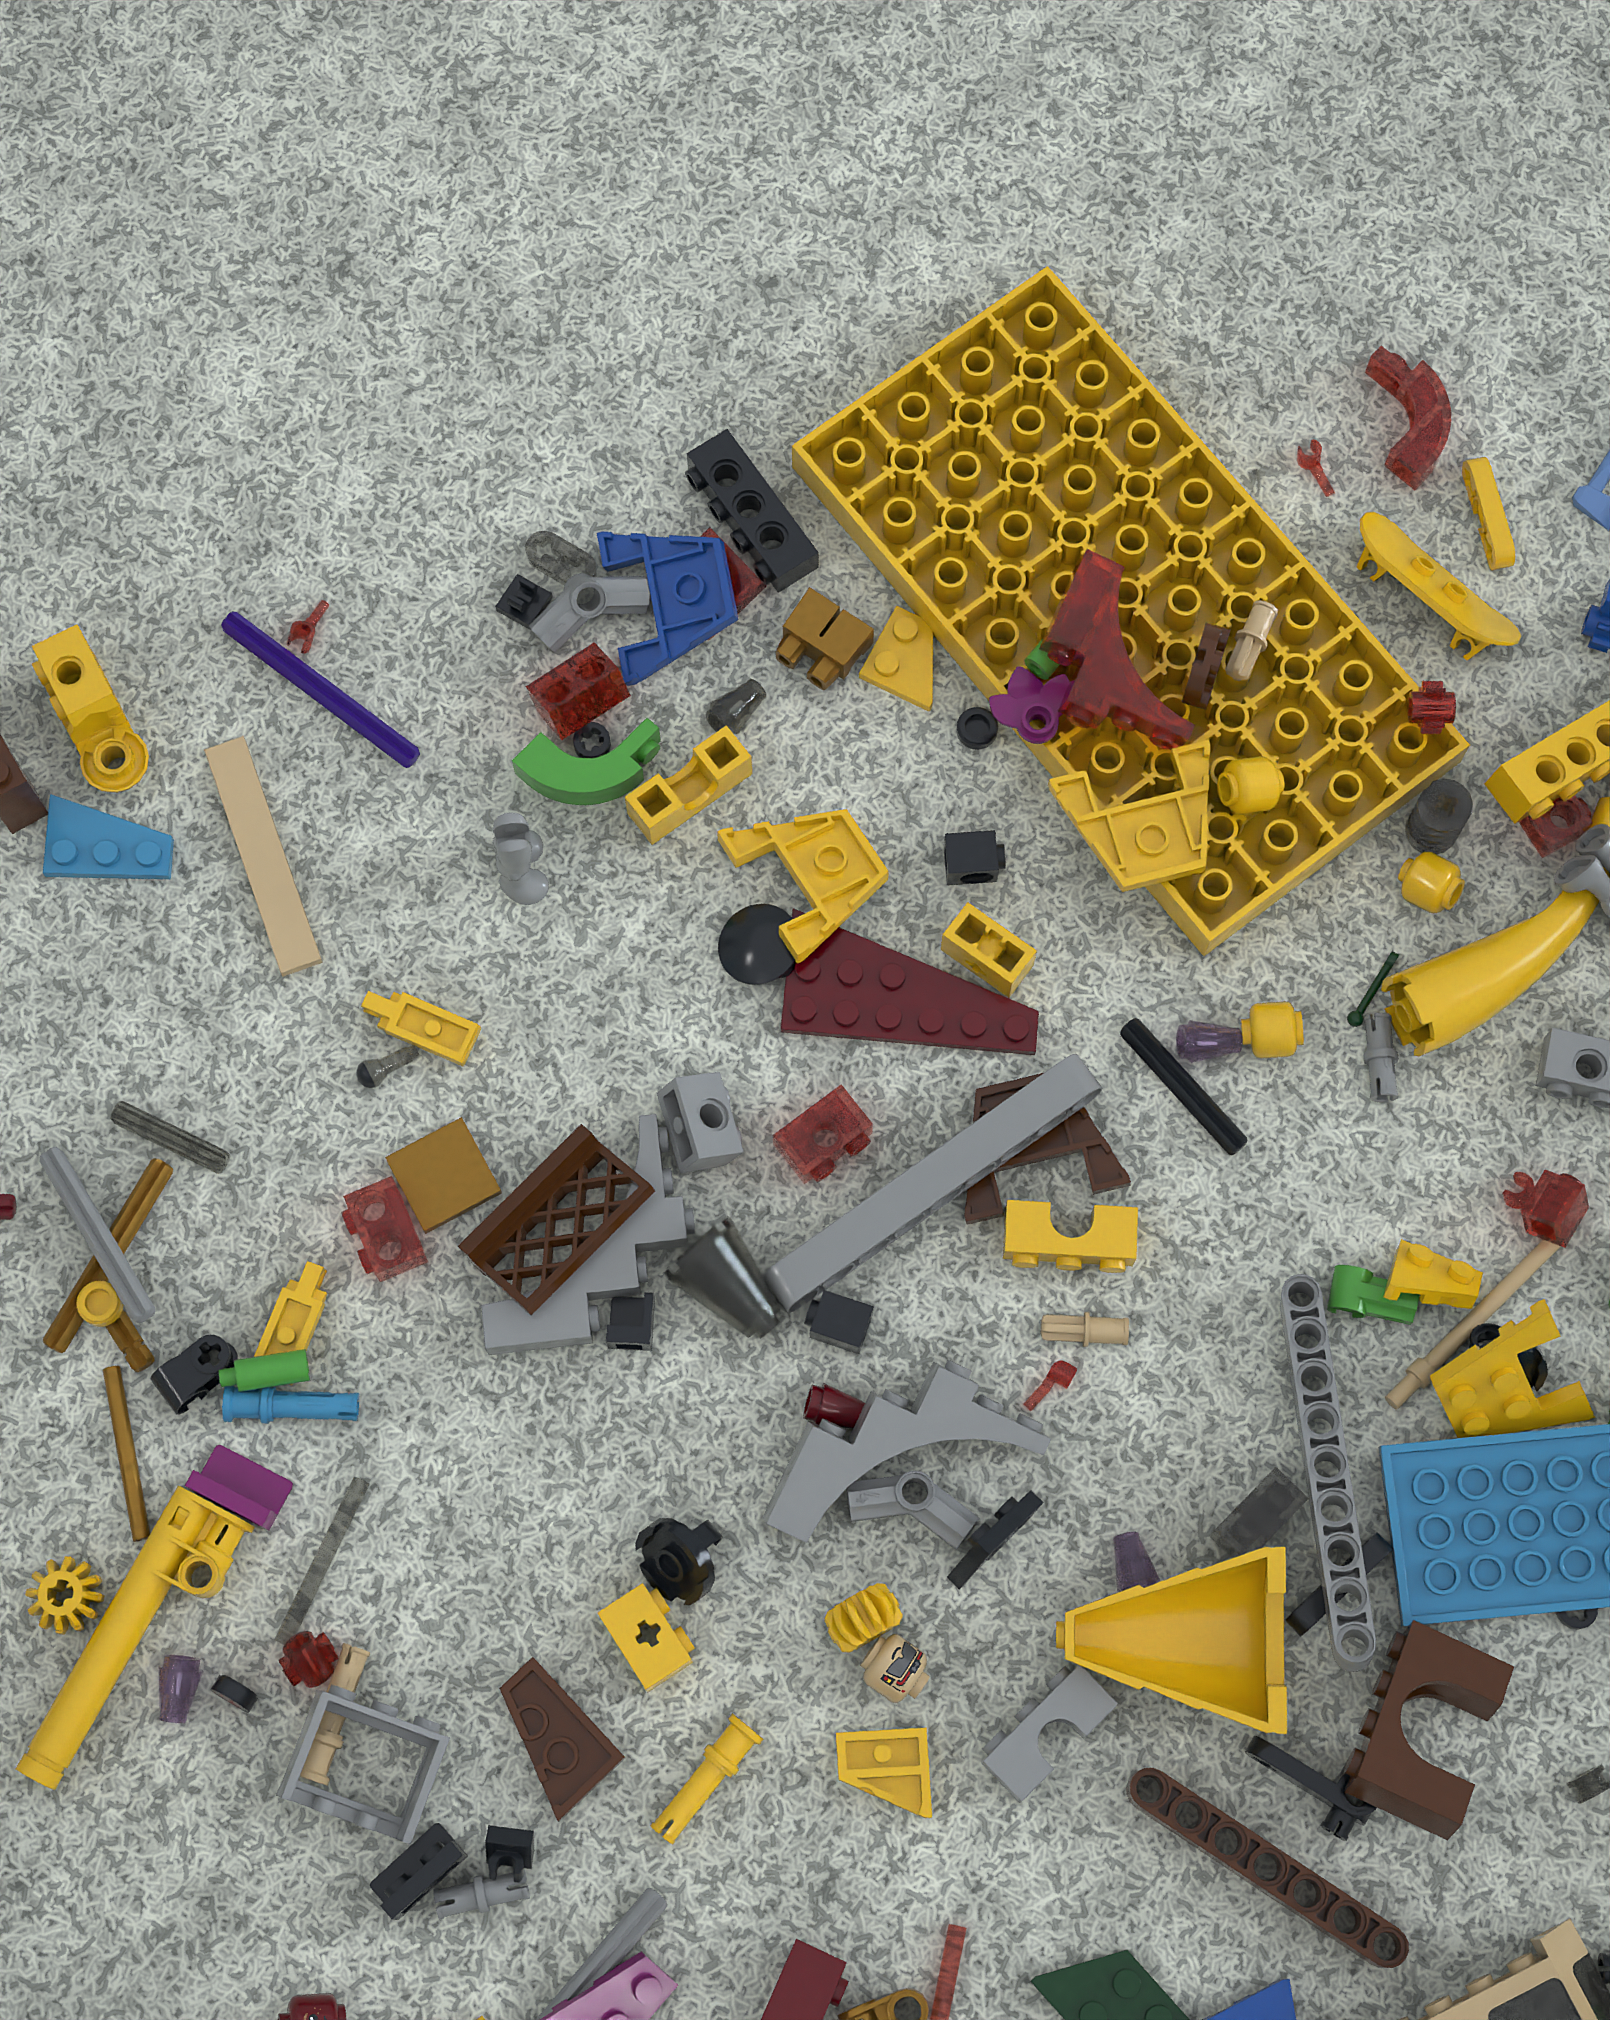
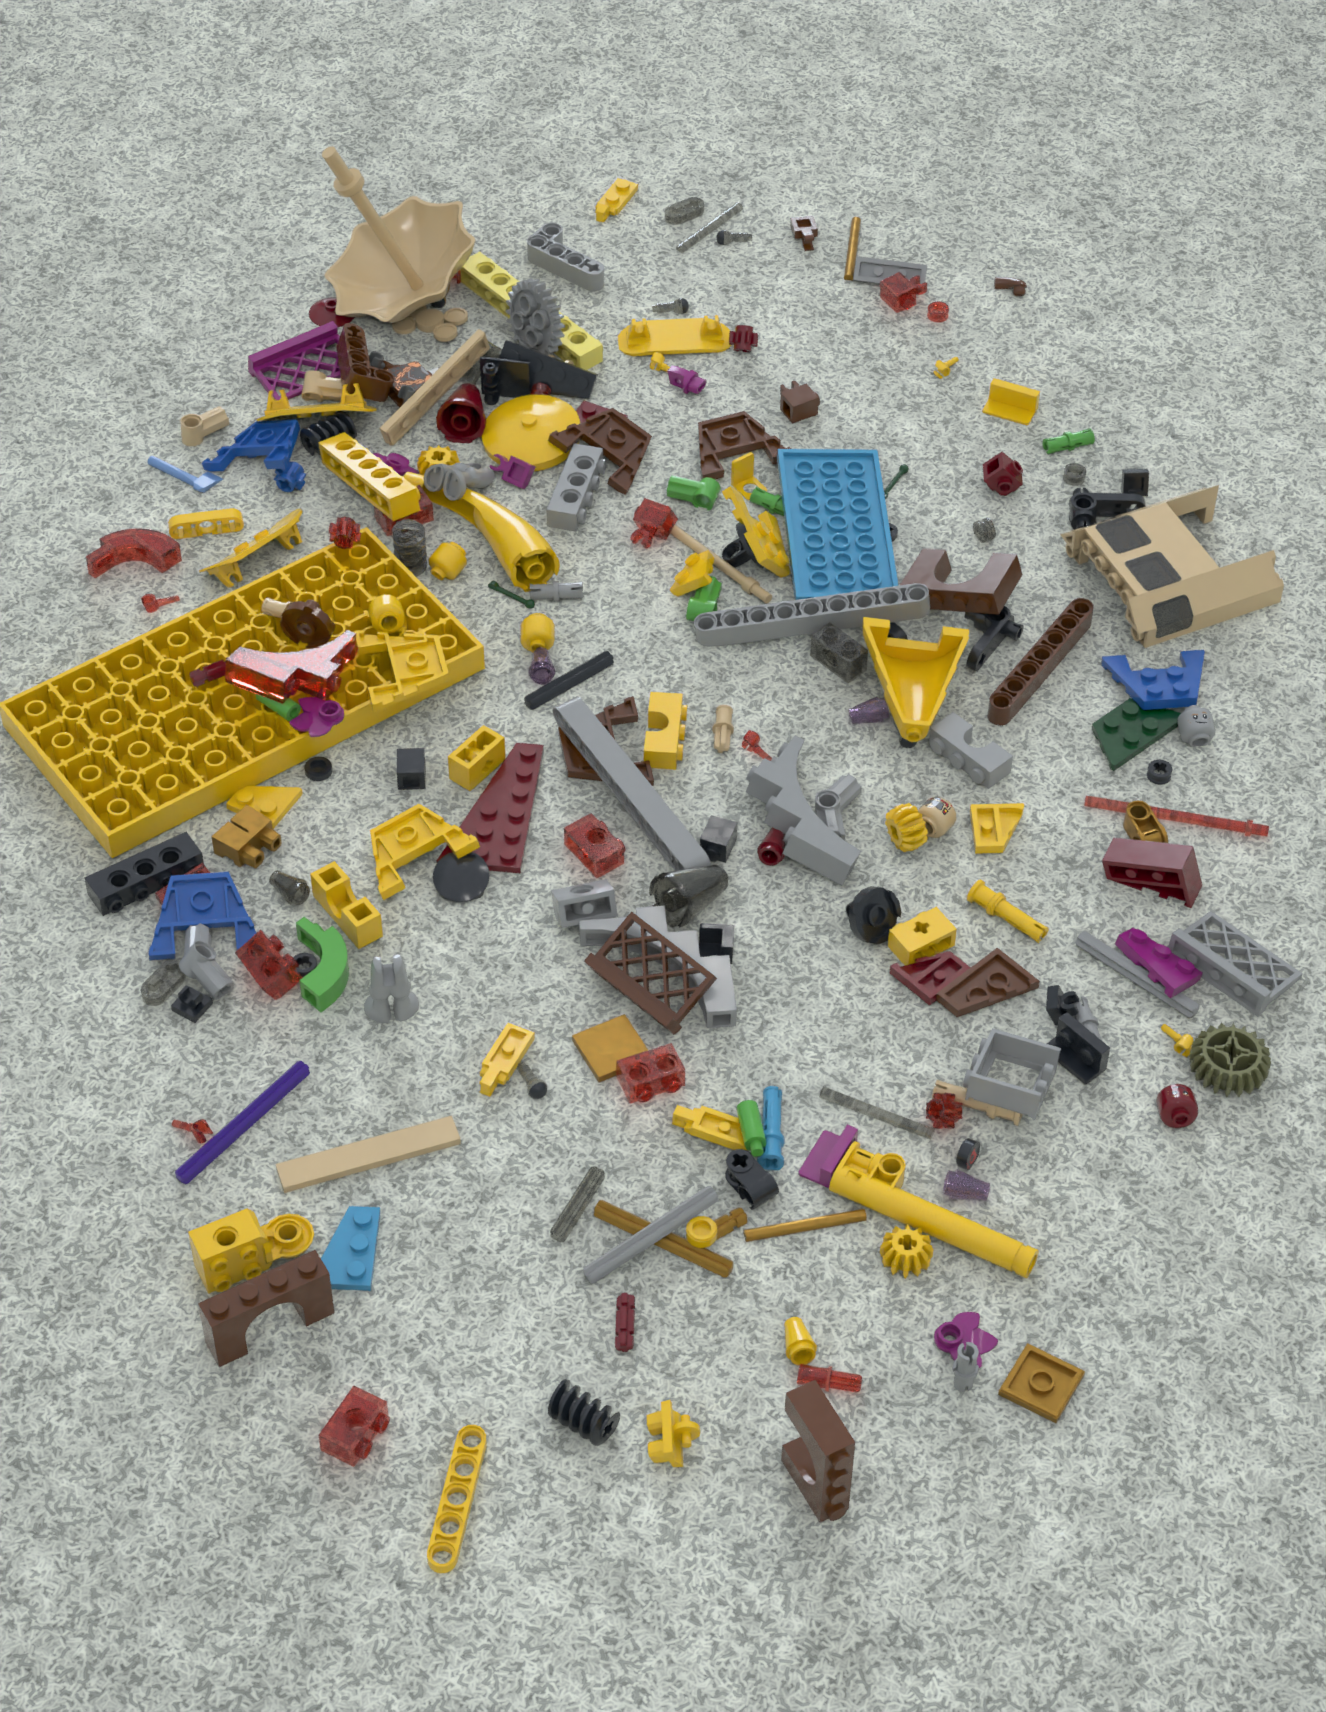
camera: 90 degrees left, 25 degrees down
(576, 1651) = (929, 974): none -> dark red wing
(989, 1540) = (858, 764): black wing -> none
(1122, 550) = (210, 672): none -> dark red axle

